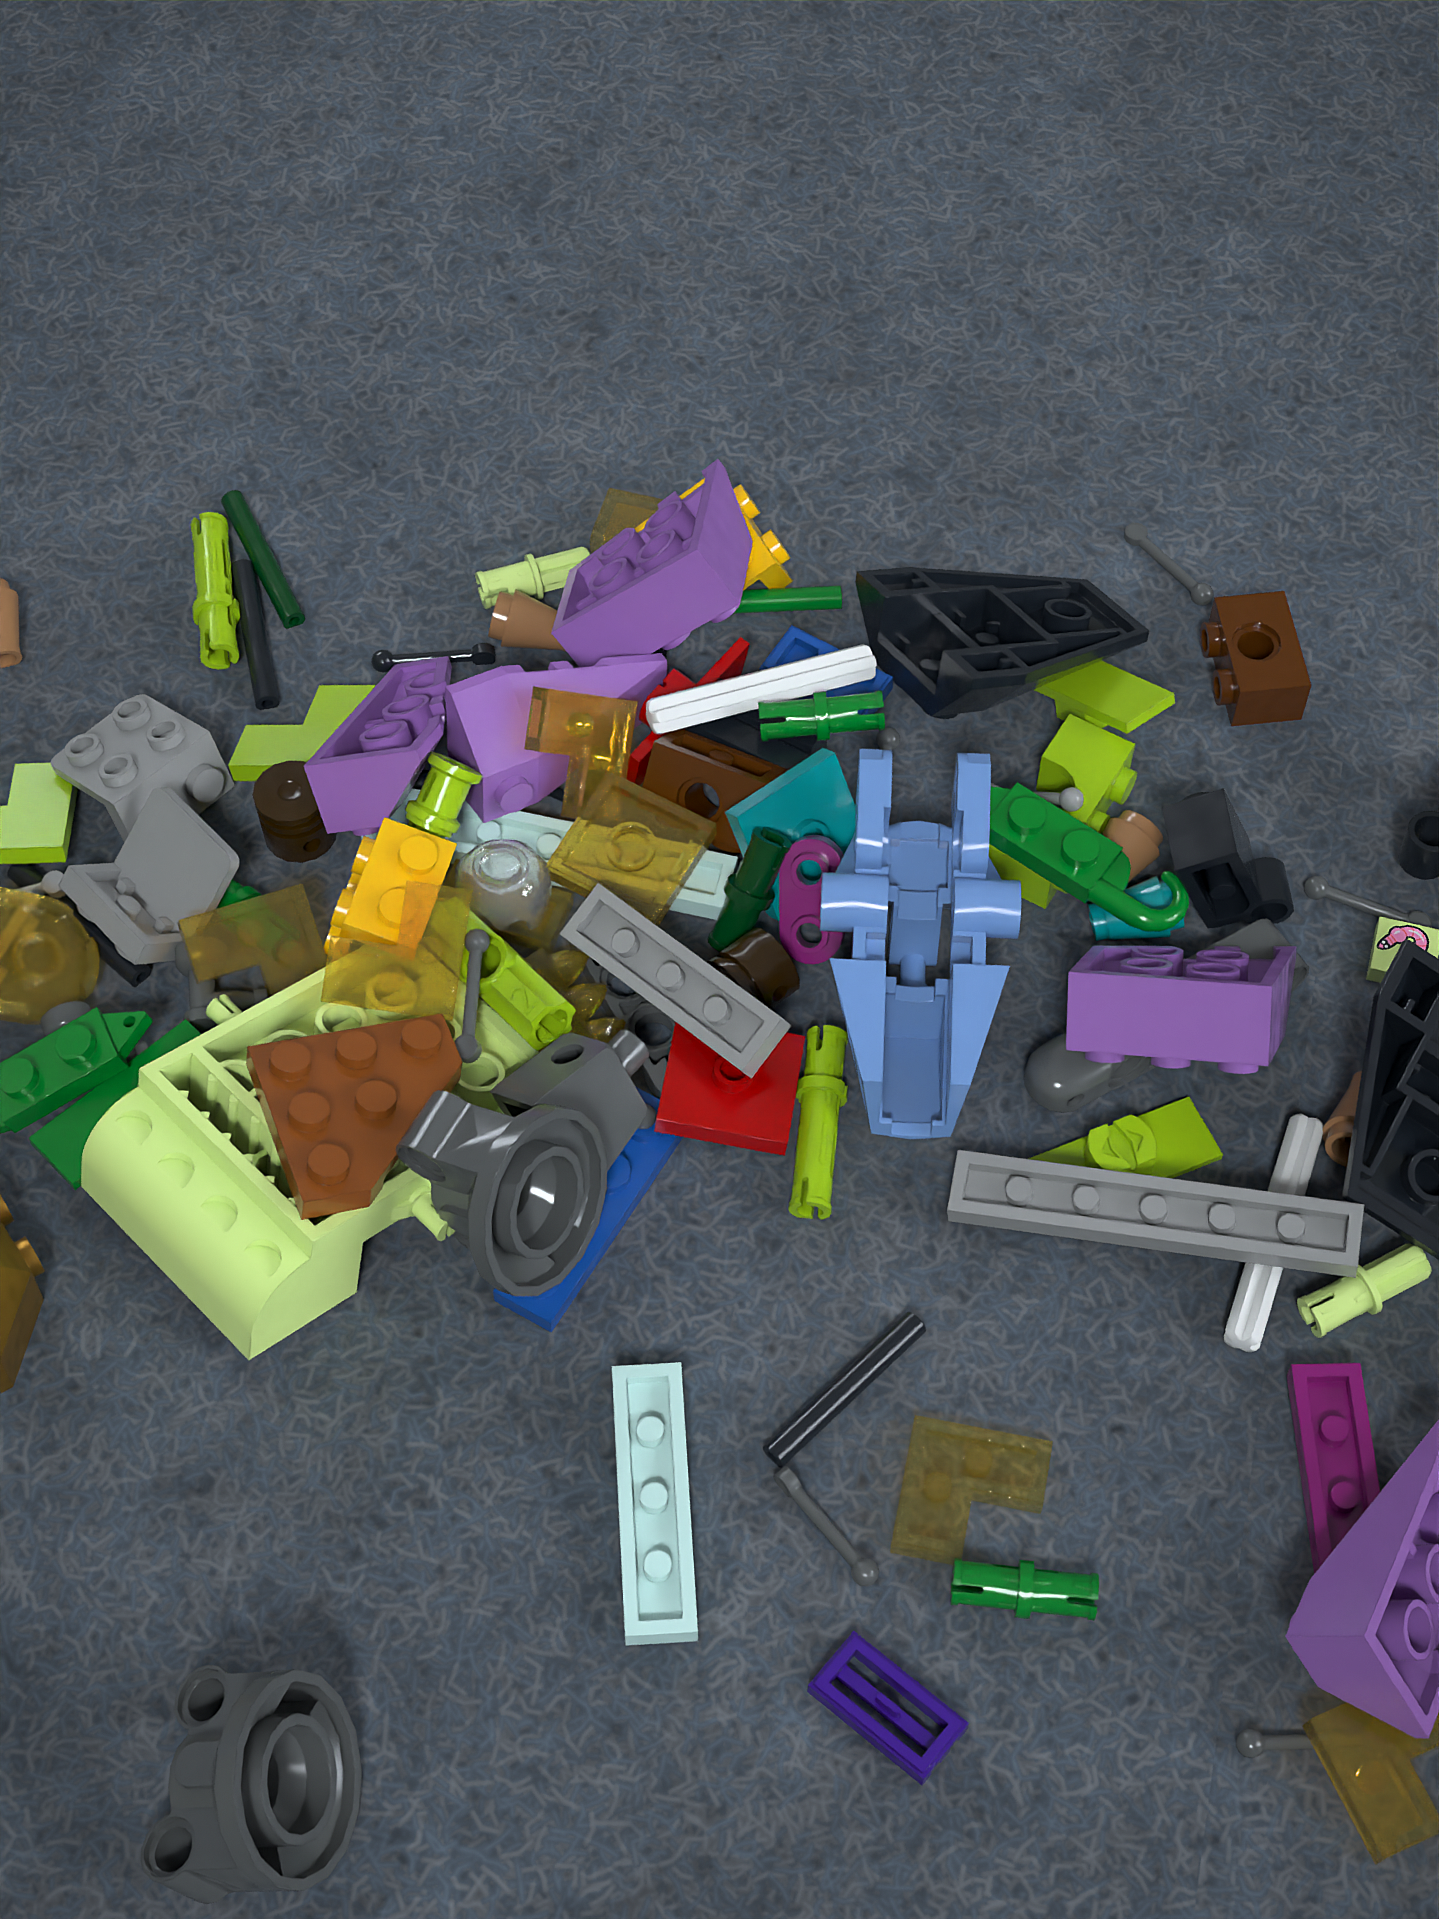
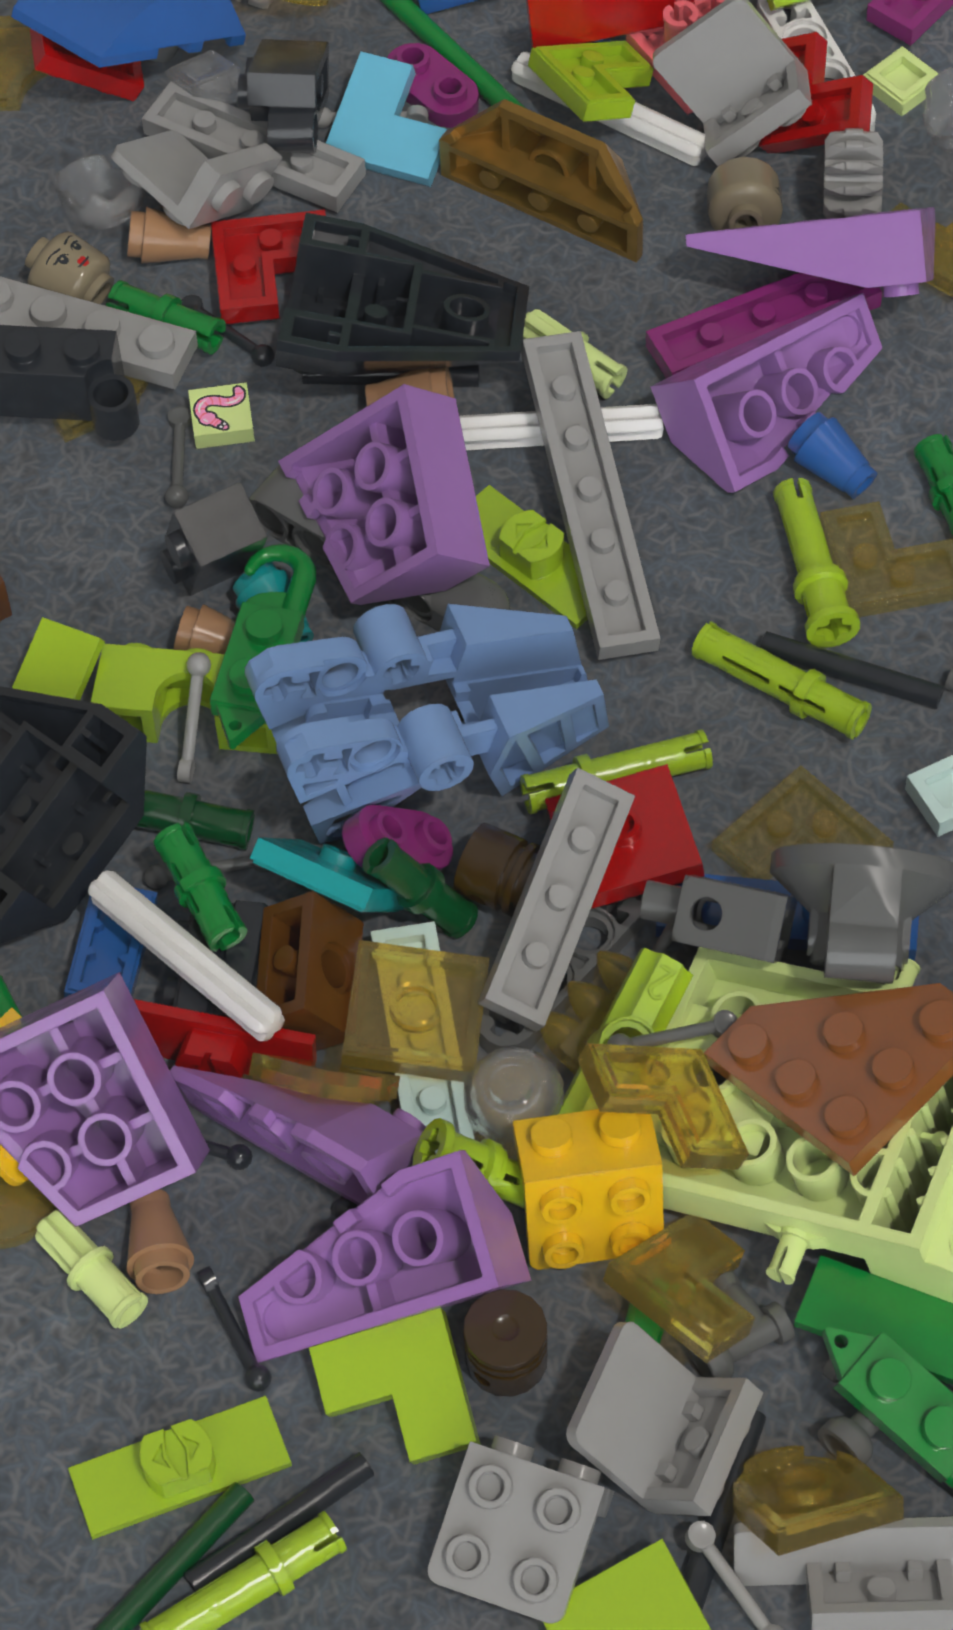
camera: 110 degrees left, 0 degrees up
(341, 593) = (179, 1466): none -> lime piece
(690, 1270) = (792, 814): none -> clear yellow tile
(833, 1322) = (803, 691): none -> lime pin
(933, 770) = (209, 820): none -> dark green pin
(956, 1395) = (818, 581): none -> lime pin
(1121, 1483) = (831, 454): none -> blue cone
(1234, 1440) = (750, 400): none -> medium lavender wedge

